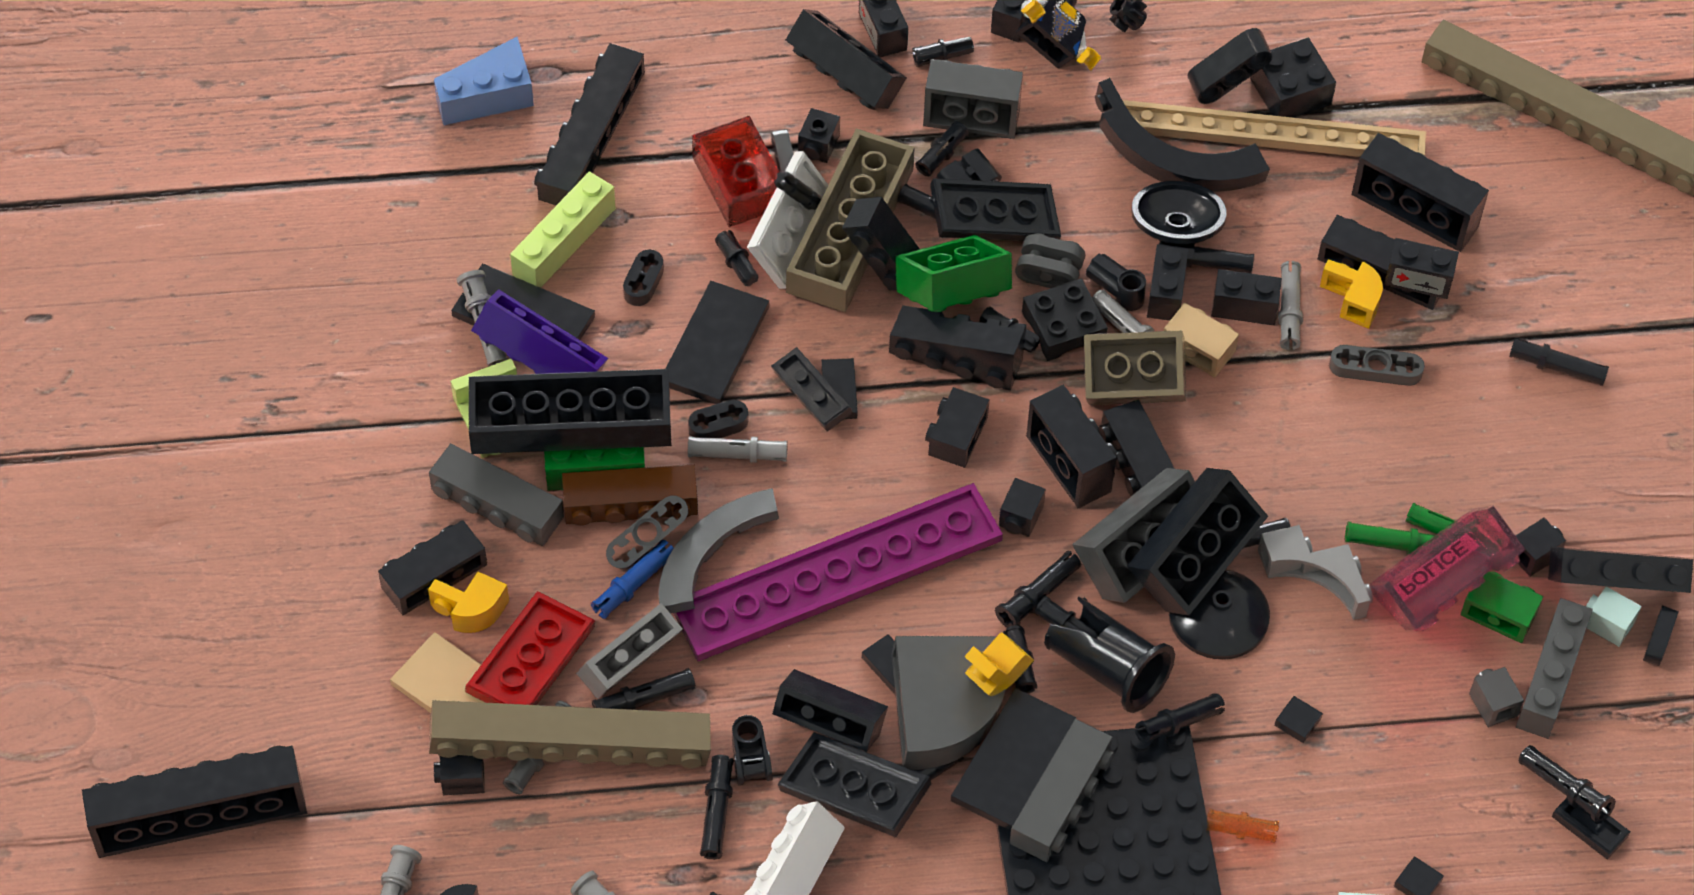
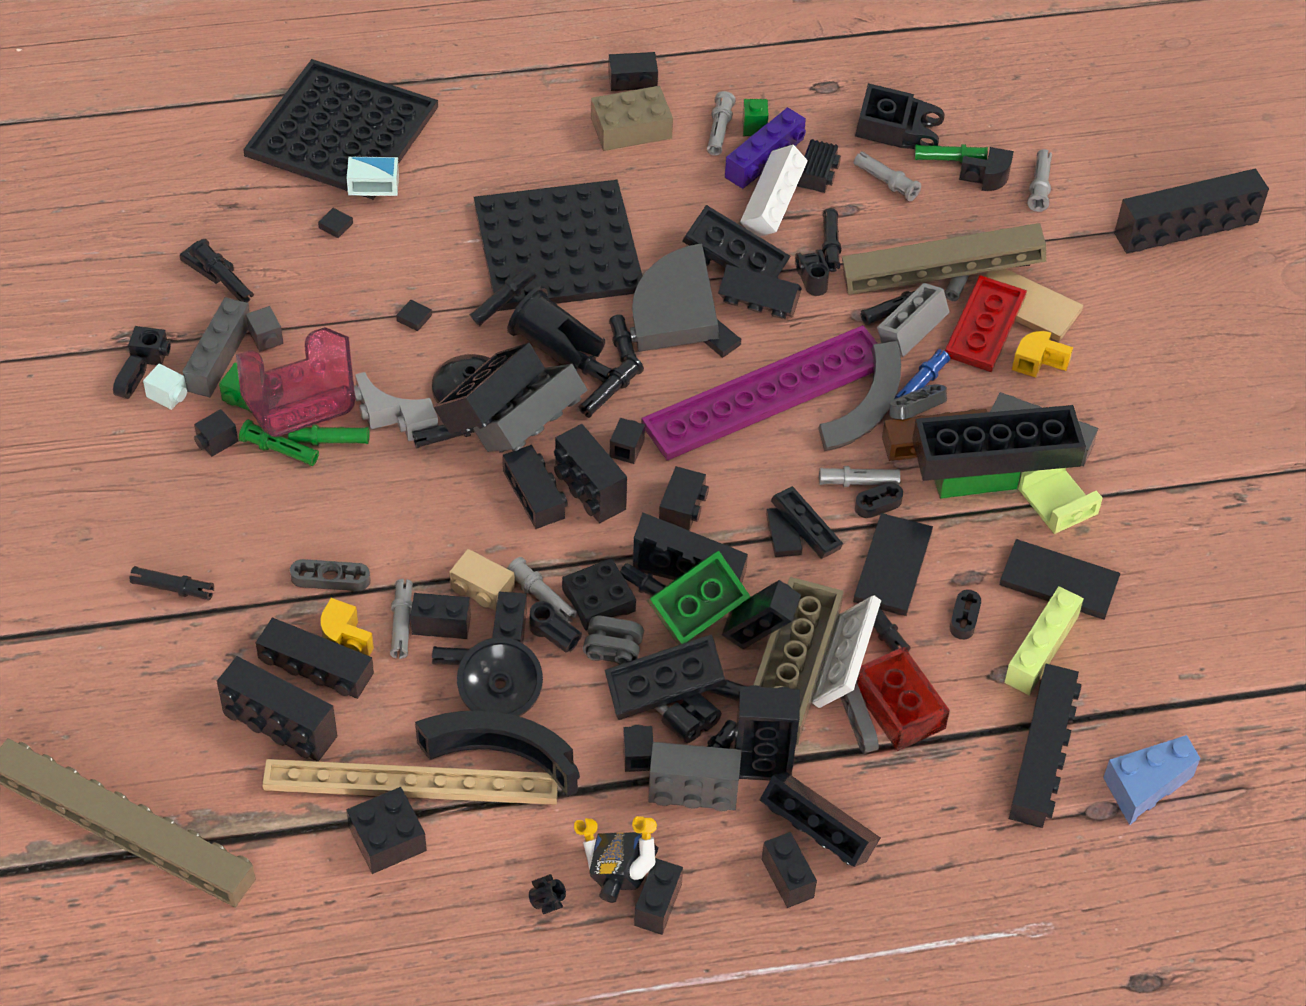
camera: 175 degrees right, 5 degrees down
(446, 557) = (1075, 375): black brick -> none
(476, 297) = (1097, 565): light grey pin -> none
(533, 339) = (1038, 522): dark purple brick -> none
(797, 190) = (844, 648): black axle -> none
(819, 135) = (833, 747): black brick -> none
(898, 94) = (767, 731): none -> black brick
(942, 50) = (727, 849): black axle -> none
(998, 665) = (642, 297): yellow brick -> none
(1012, 759) = (623, 265): black tile -> none
(1028, 146) = (637, 747): none -> black brick
(1061, 790) = (588, 241): dark grey brick -> none
(1135, 367) = (539, 532): dark tan brick -> none
(1229, 66) = (448, 823): black beam -> none
(1242, 825) = (458, 244): clear orange pin -> none
(1421, 268) = (286, 617): black brick -> none
(1620, 569) = (154, 403): black brick -> none
(1652, 668) = (150, 344): none -> black brick

